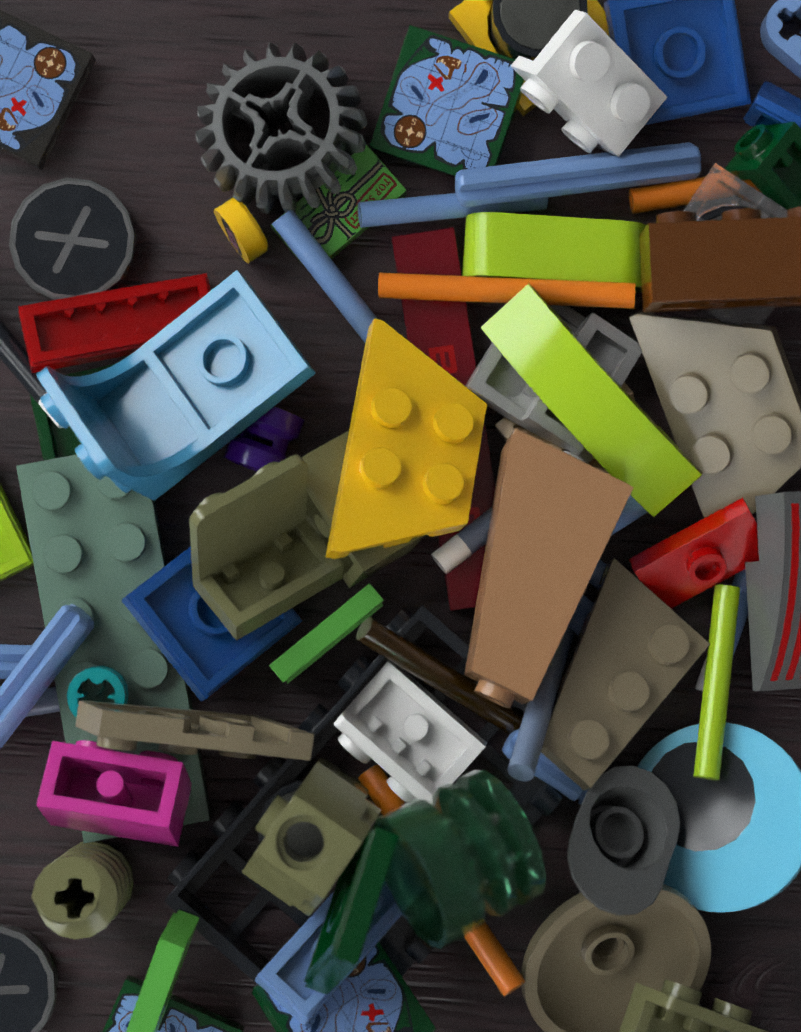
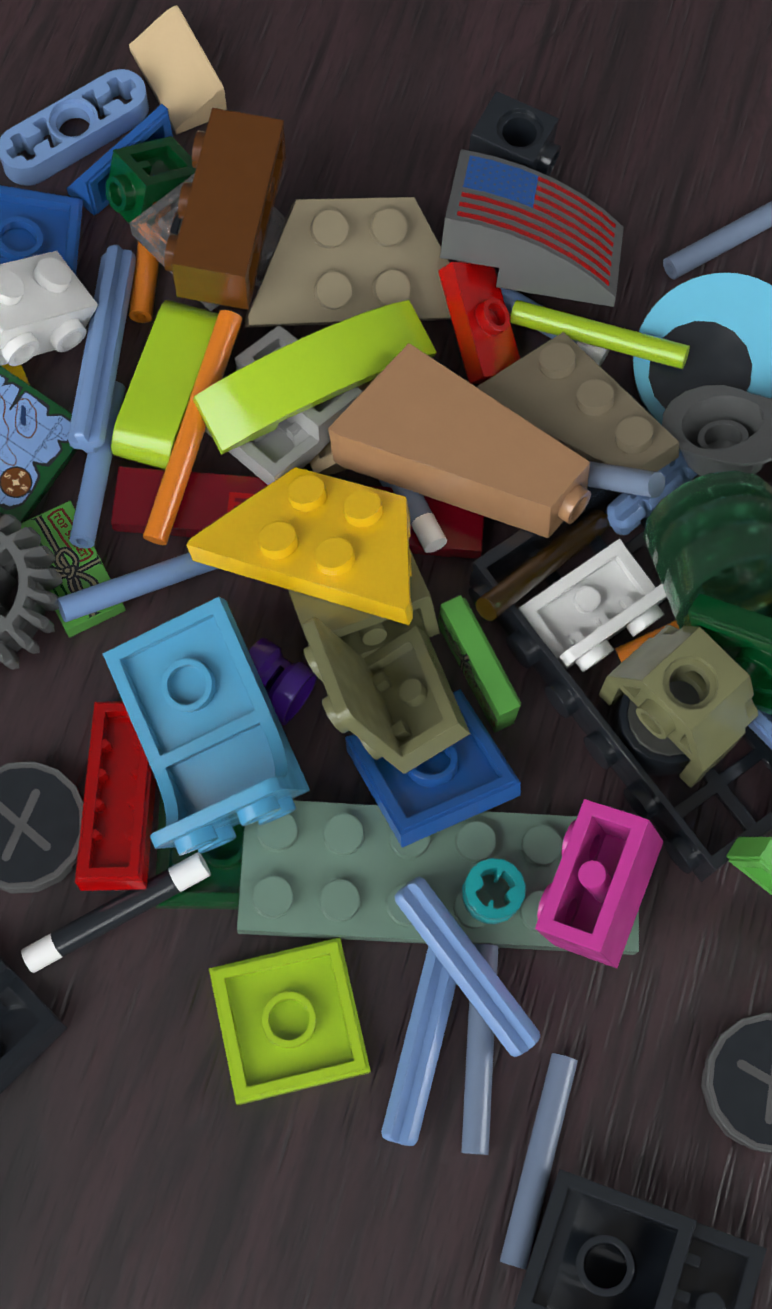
camera: 80 degrees left, 15 degrees down
(67, 905) = (710, 933): olive piece -> none
(187, 730) = (548, 805): dark tan wing -> none
(241, 229) = (62, 656): yellow tile -> none

